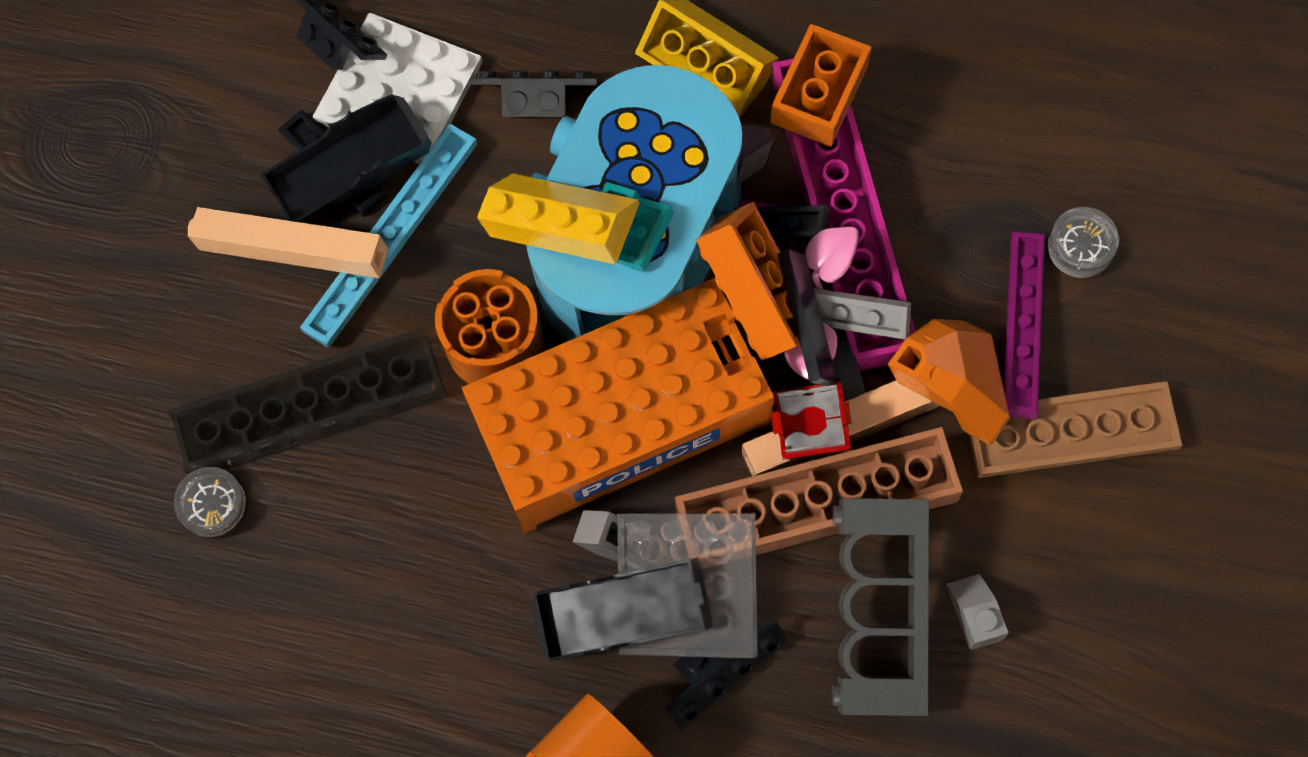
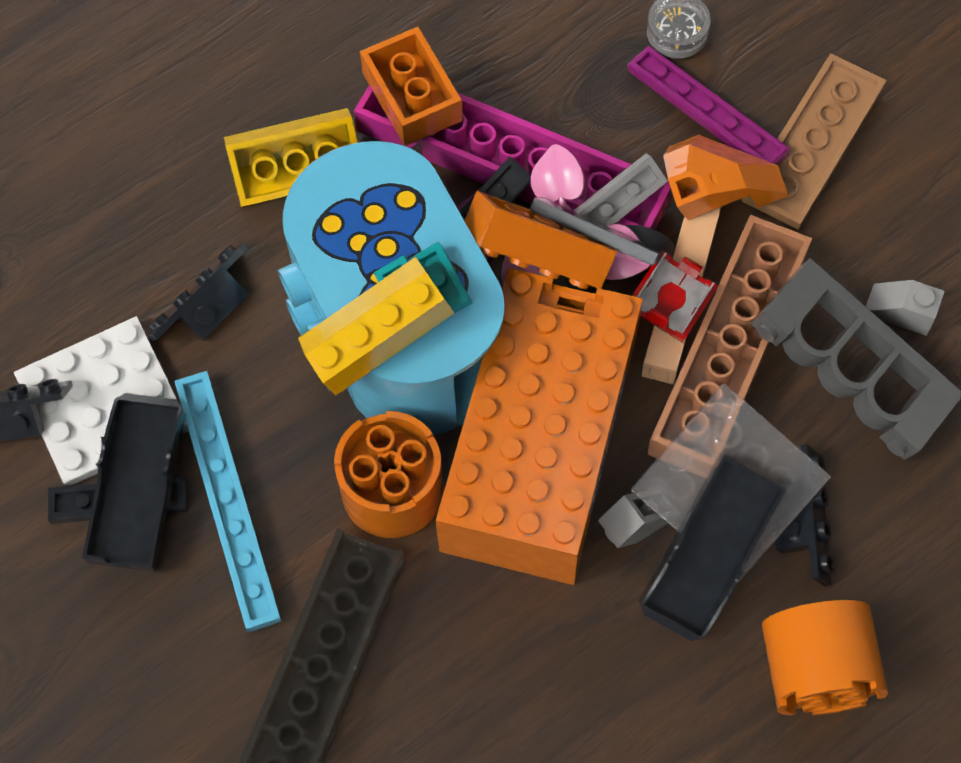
camera: 55 degrees left, 5 degrees down
(288, 242) = (160, 583): light nougat brick -> none

